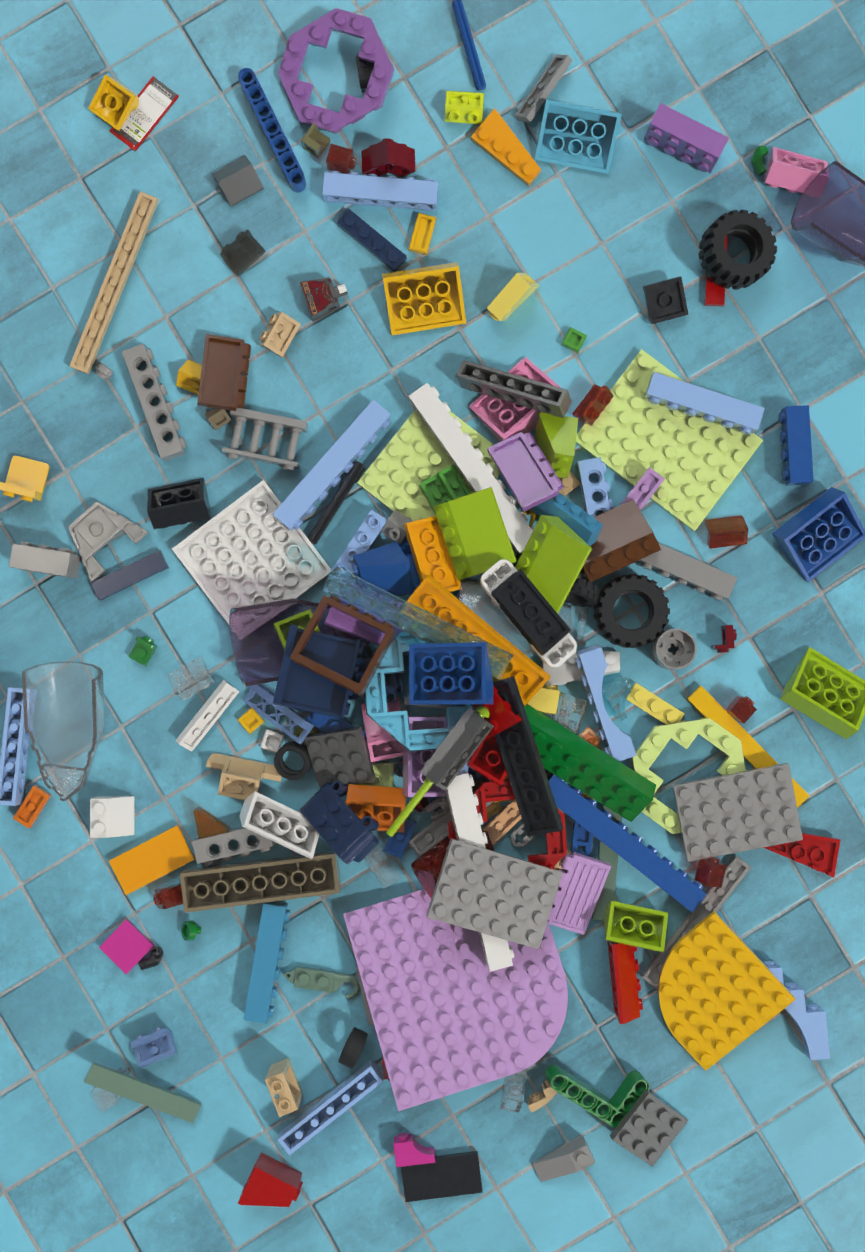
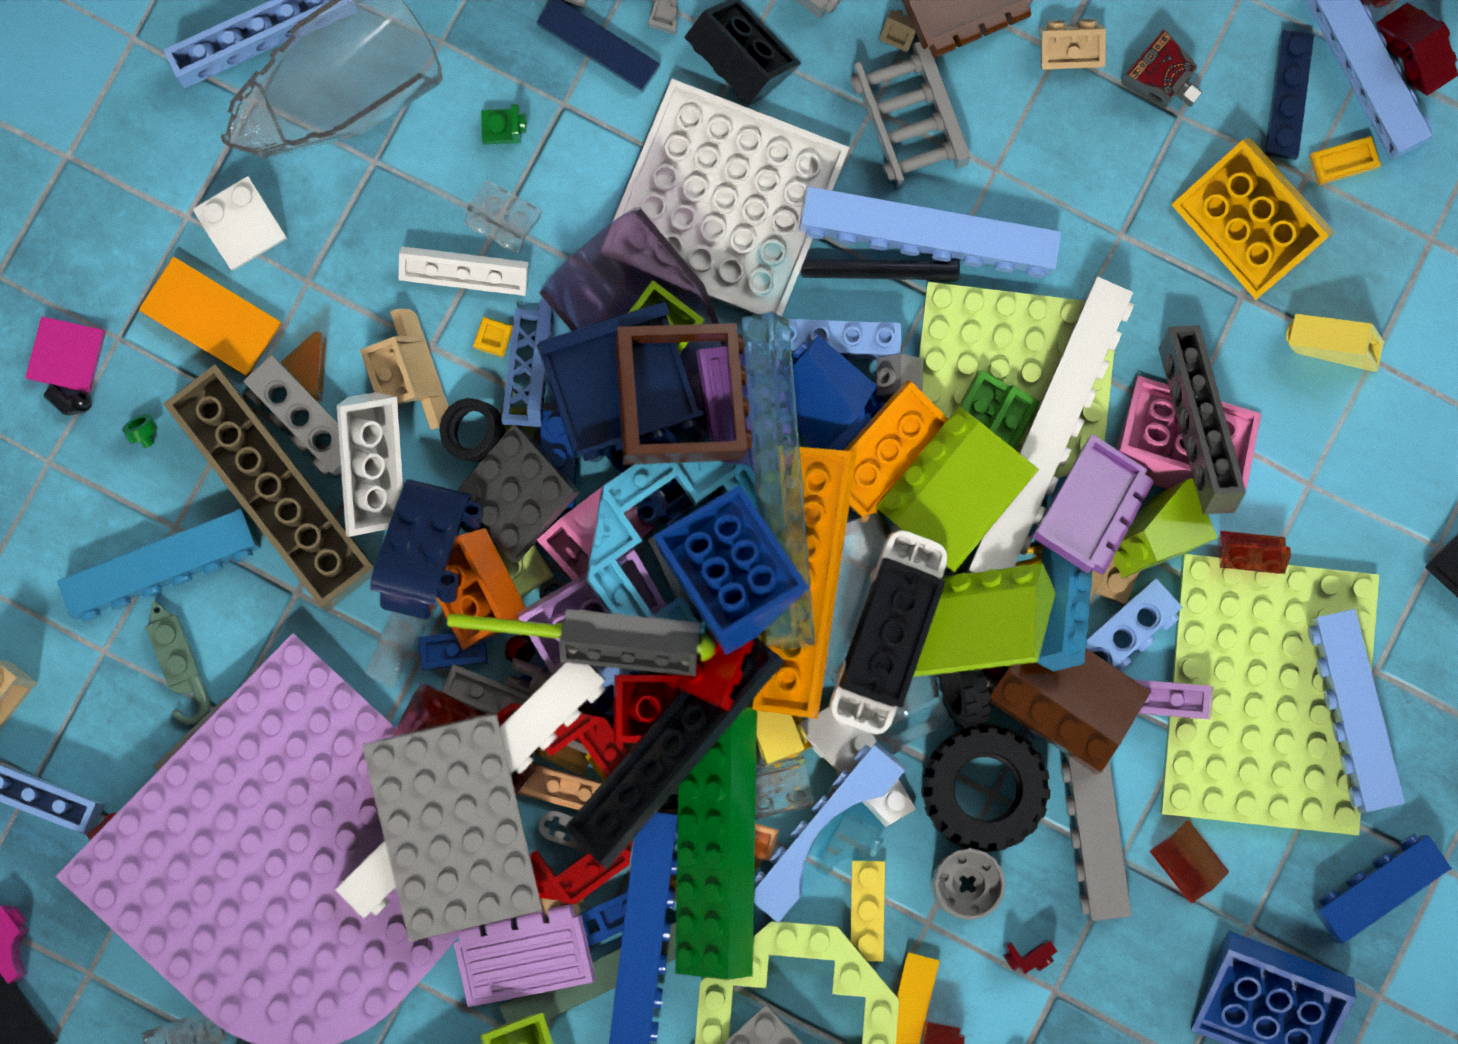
camera: 55 degrees right, 5 degrees down
(32, 806) = (187, 104): orange plate -> none
(168, 897) = (170, 370): clear red bracket -> none
(272, 740) = (482, 384): white tile -> none
(353, 1047) = (107, 763): black tyre -> none
(573, 340) = (1330, 469): bright green tile -> none

